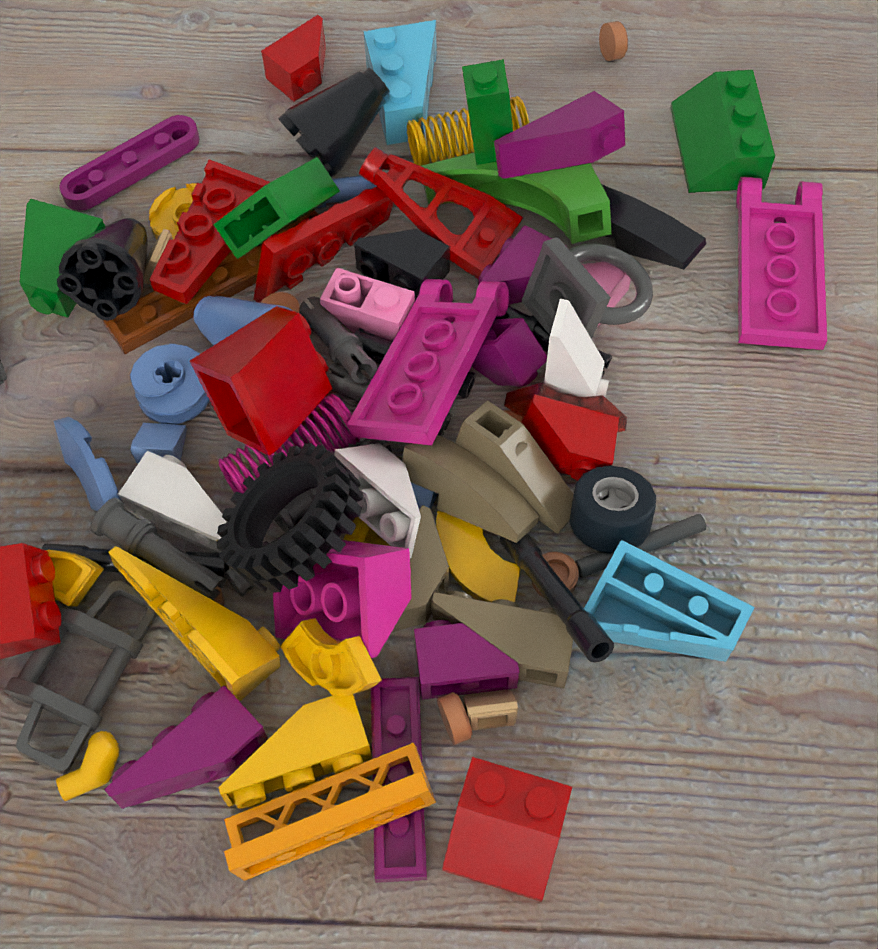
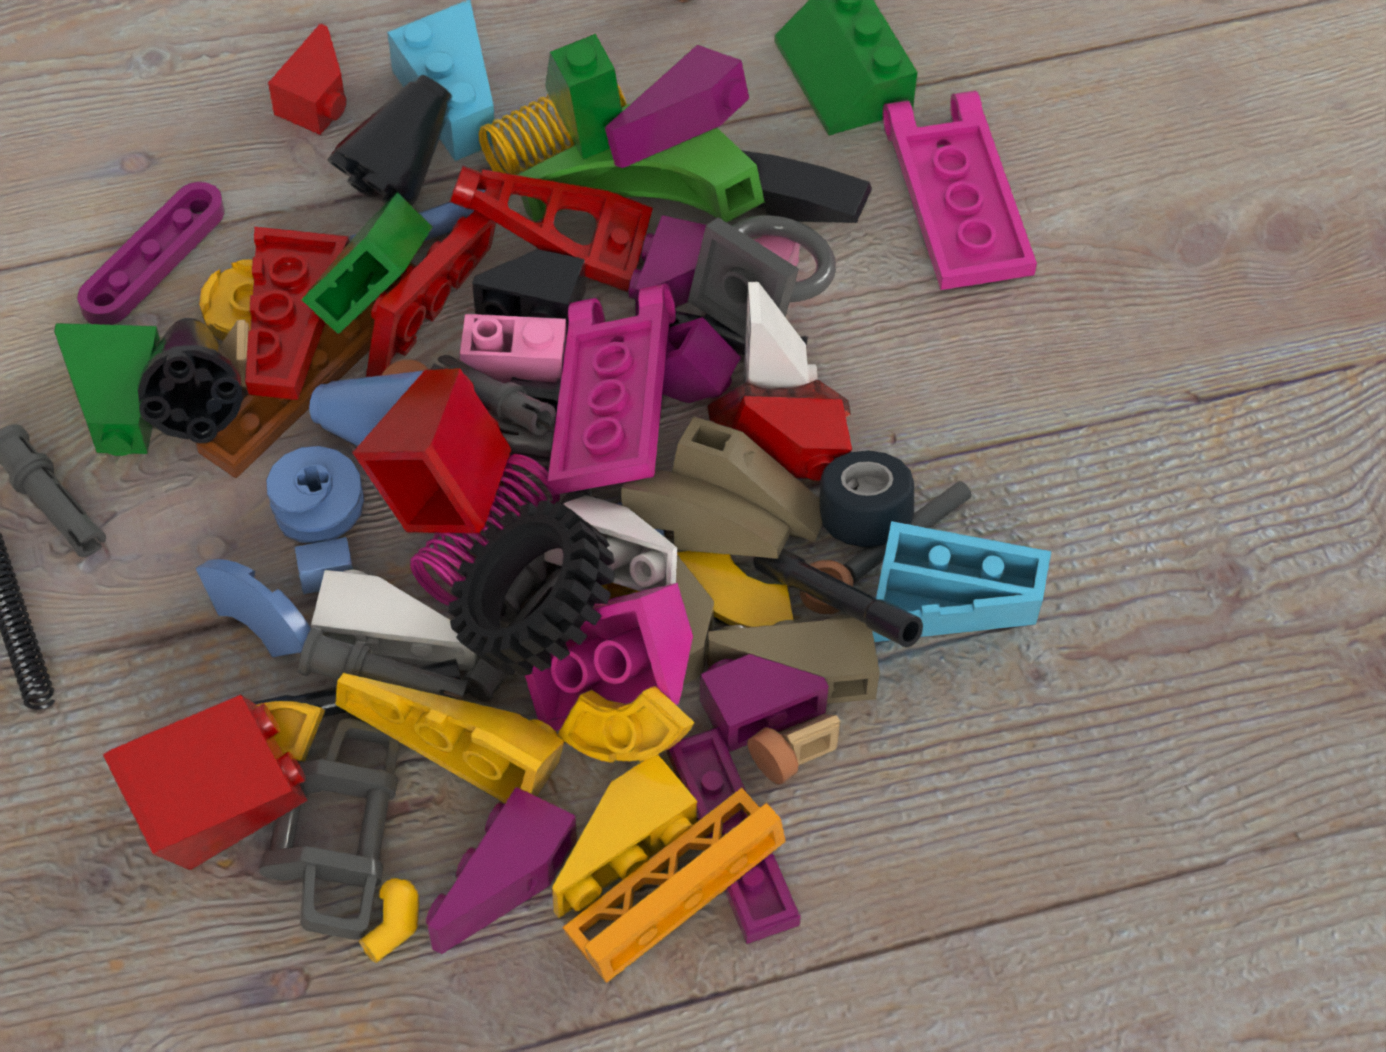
camera: 20 degrees left, 5 degrees down
(507, 828) = (868, 844): red slope -> none

